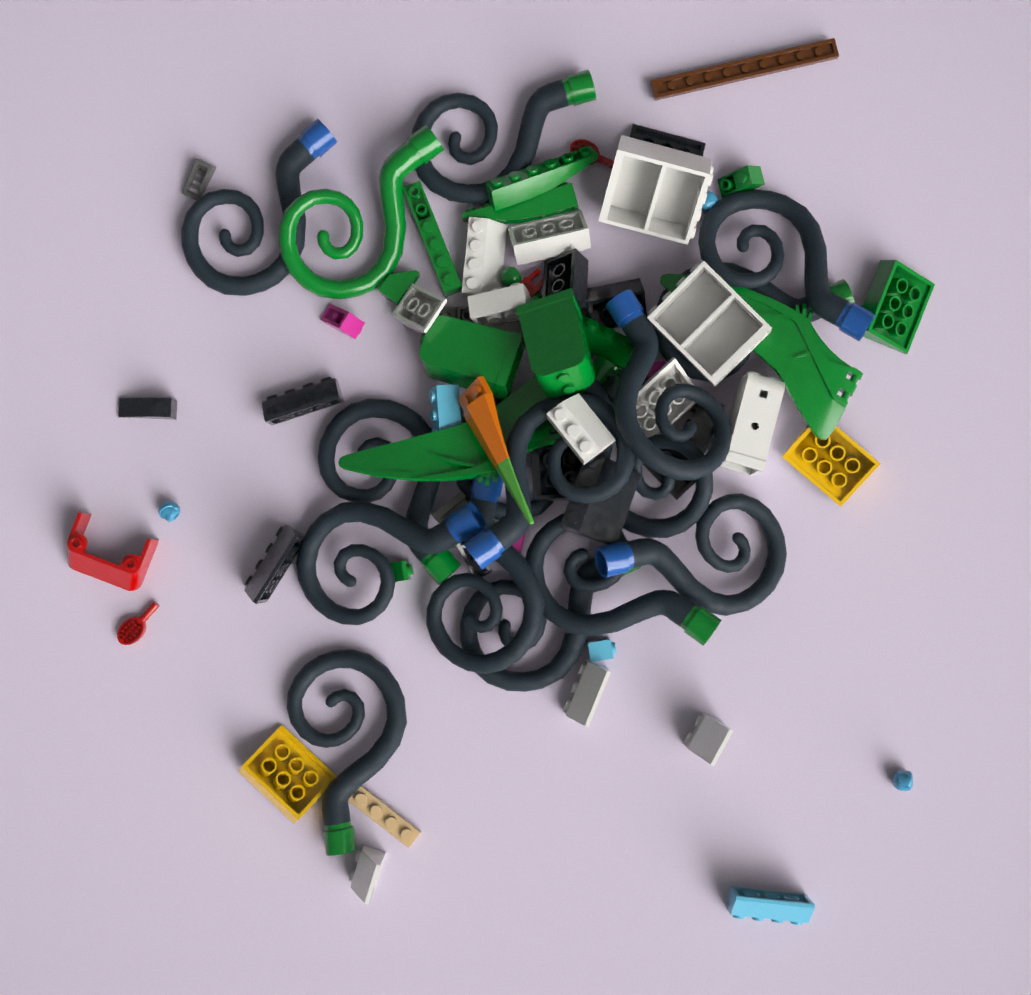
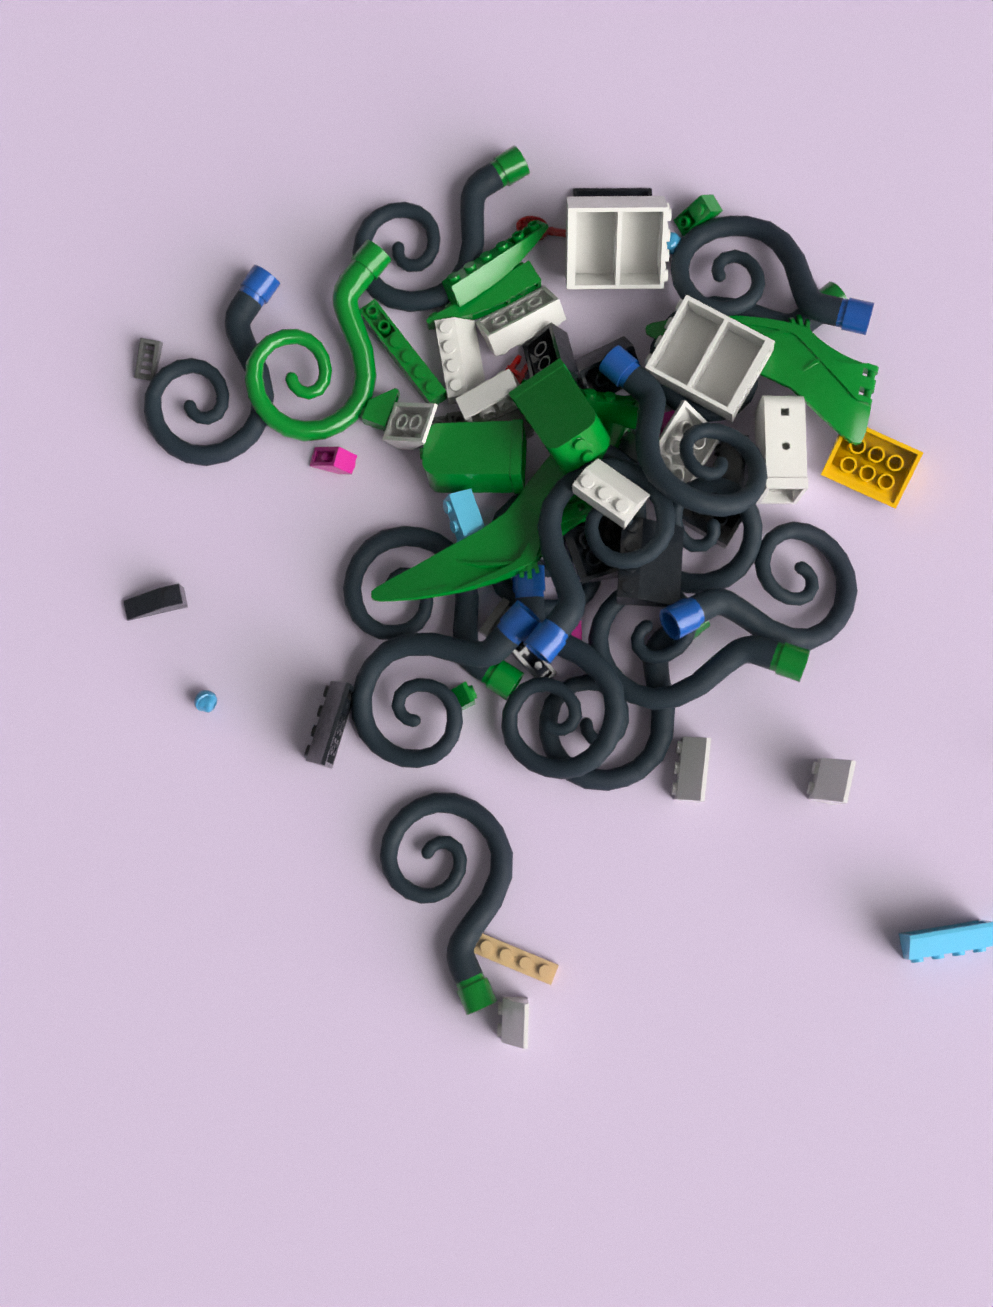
camera: 10 degrees left, 5 degrees down
(127, 575) = (178, 780): windscreen -> none
(135, 627) = (201, 832): red piece -> none
(287, 774) = (402, 942): yellow slope -> none
(302, 402) = (314, 552): black slope -> none
(483, 420) = (508, 514): orange plate -> none
(510, 275) = (491, 368): green piece -> none
(601, 649) = (693, 721): medium azure brick -> none
(744, 69) = (669, 106): reddish brown plate -> none
(899, 301) = (894, 288): green slope -> none

